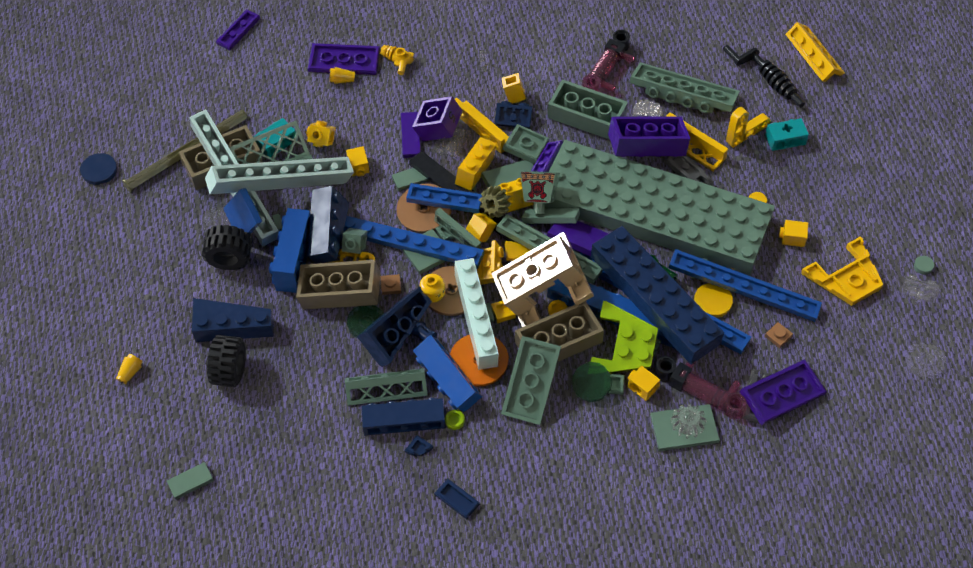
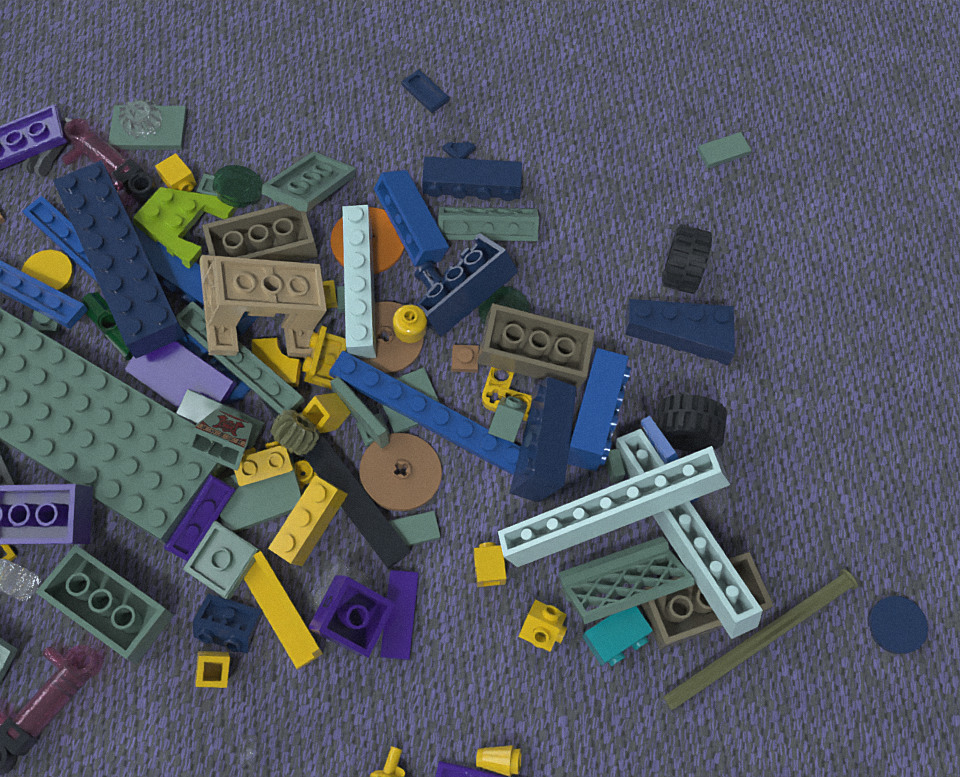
camera: 175 degrees left, 10 degrees up
(129, 367) = (809, 289): yellow cone -> none
(444, 198) = (368, 463): blue plate -> none
(454, 419) = (415, 171): lime tile -> none

